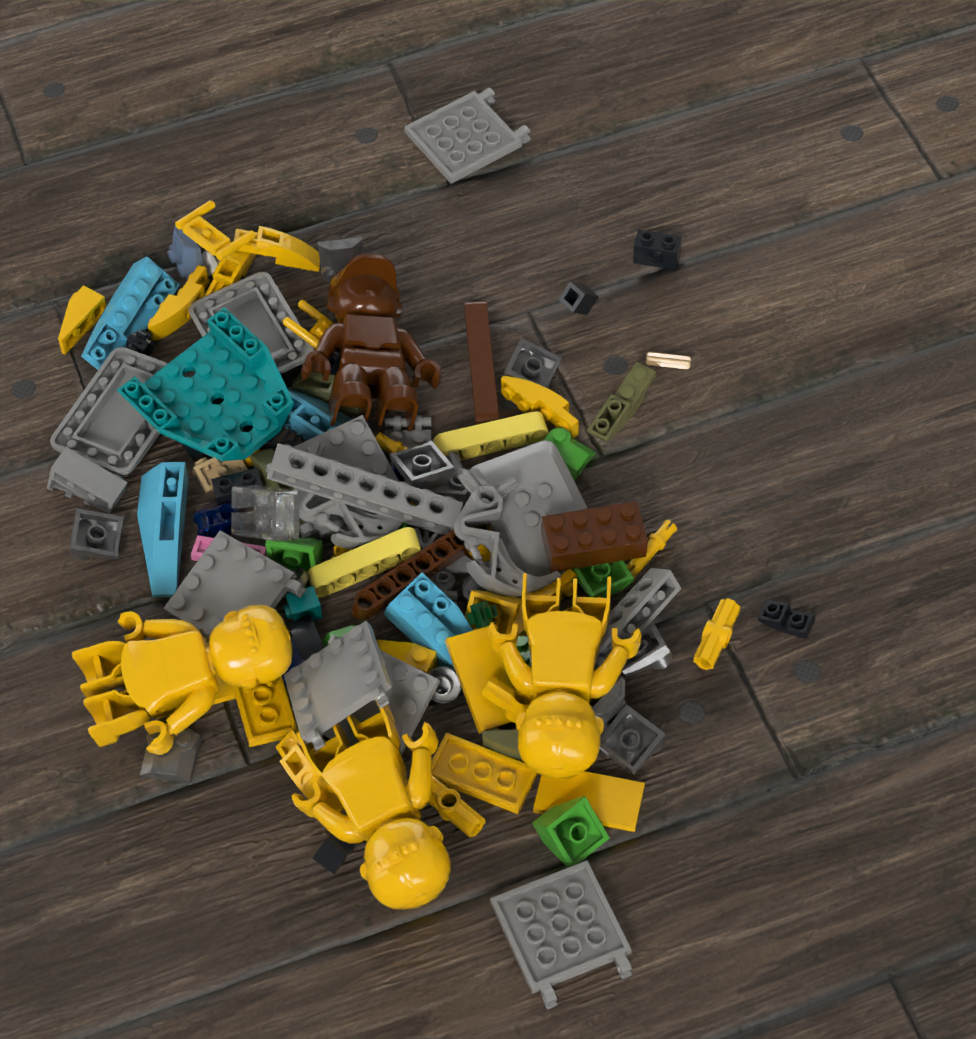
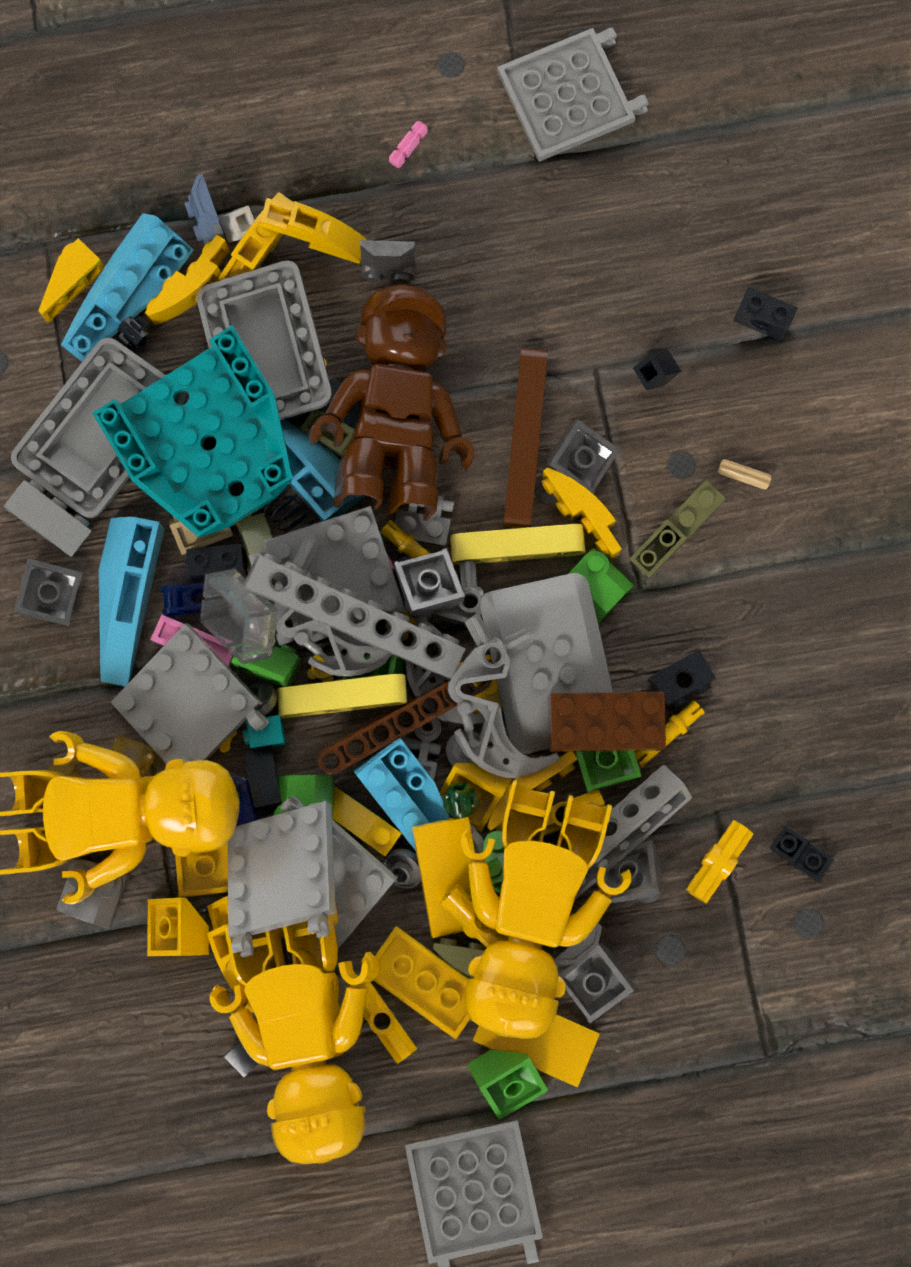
camera: 10 degrees right, 25 degrees up
(207, 235) = (229, 208): yellow plate -> none
(251, 766) = (175, 929): none -> yellow slope
(313, 336) = (348, 359): yellow plate -> none
(342, 188) = (408, 144): none -> bright pink axle
(661, 499) = (692, 666): none -> black brick

